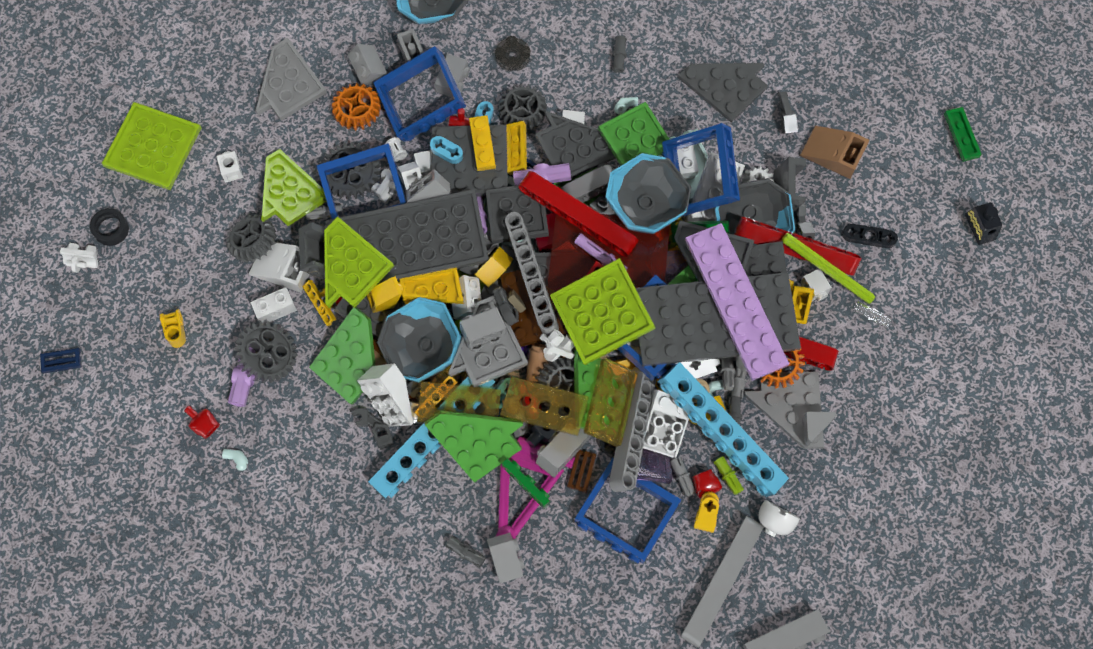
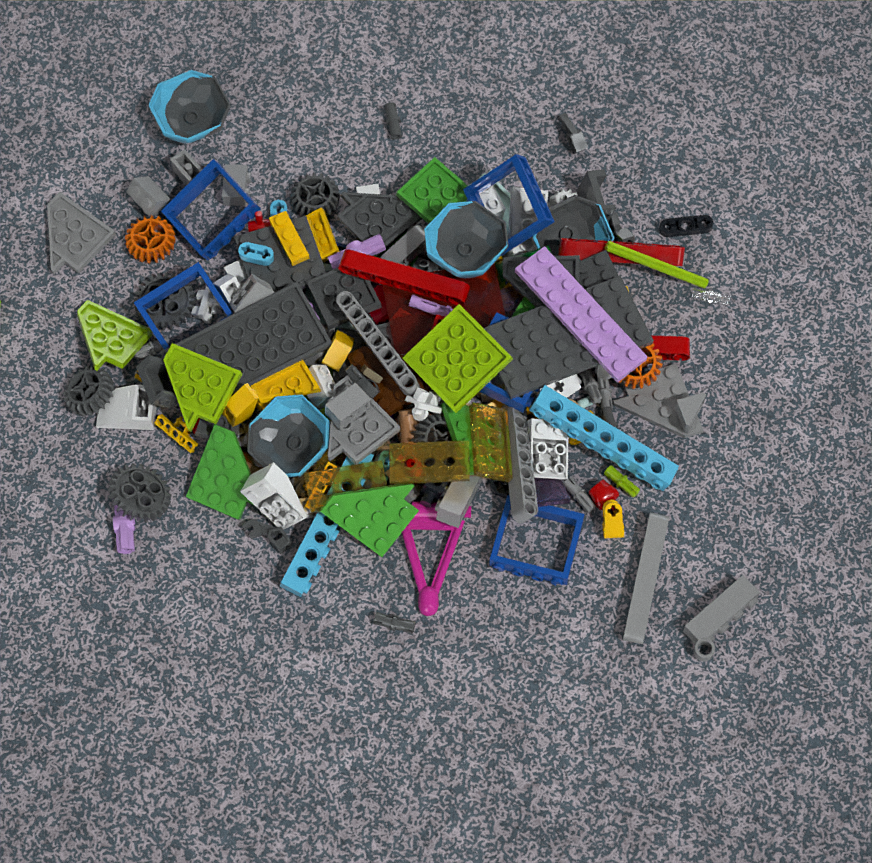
camera: 15 degrees left, 5 degrees down
(172, 325) = (37, 496): yellow piece -> none
(202, 423) = (98, 578): red piece -> none
(229, 173) = (46, 336): white brick -> none
(238, 457) = (143, 599): light aqua arm -> none
(273, 306) = (132, 448): white brick -> none
(397, 149) = (210, 271): white bush -> none
(505, 557) = (435, 614): light grey brick -> none
(512, 63) = (293, 156): clear smoke plate -> none
(526, 483) = (433, 541): green plate -> none
(586, 454) = (481, 501): reddish brown tile -> none
(623, 104) = (413, 165): light aqua arm -> none
(725, 86) = (505, 123): dark grey wing -> none
(777, 519) = (679, 507): white cylinder -> none
(802, 301) = (641, 298): yellow slope -> none
(818, 282) = (649, 284): white brick -> none
(835, 149) = (629, 154): medium nougat slope -> none
(962, 134) = (744, 108): green plate -> none
(984, 223) = (788, 181): black torso -> none

